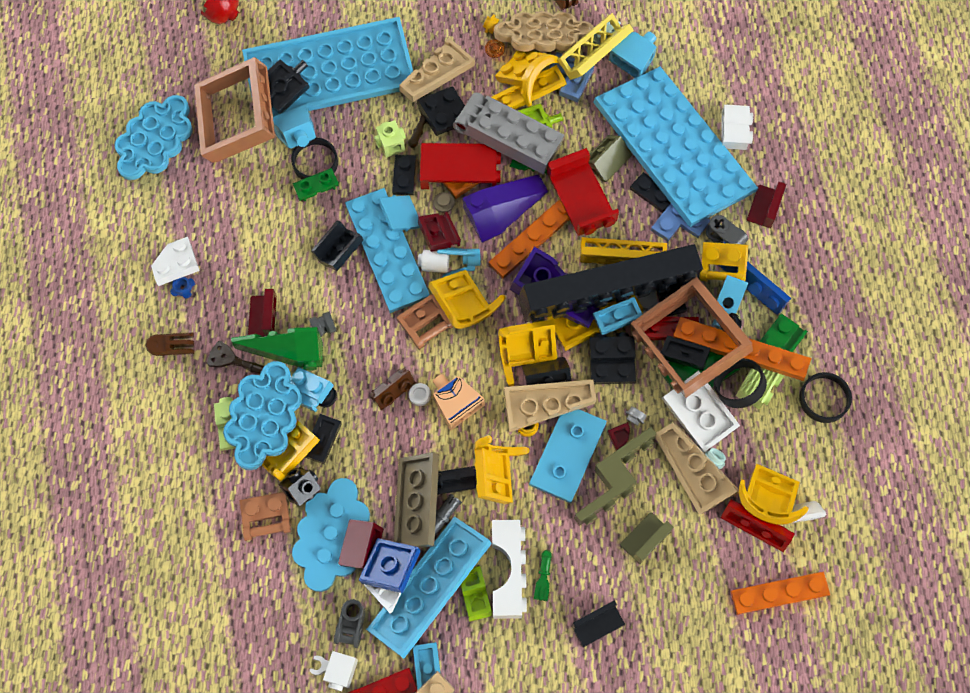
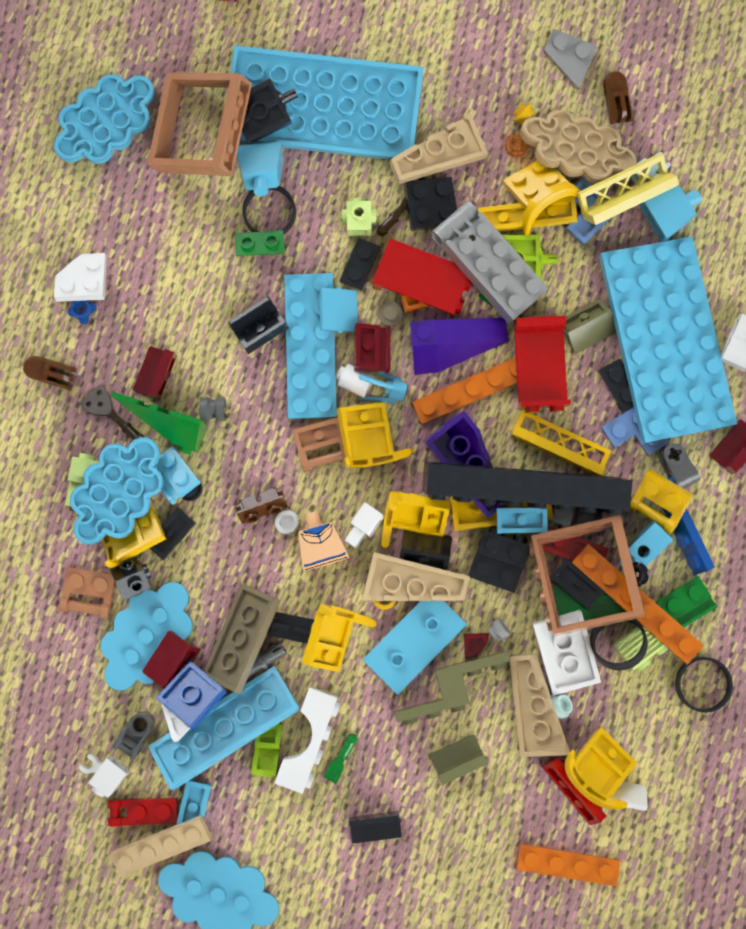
camera: 25 degrees right, 15 degrees up
(487, 368) = (364, 523): none -> white piece

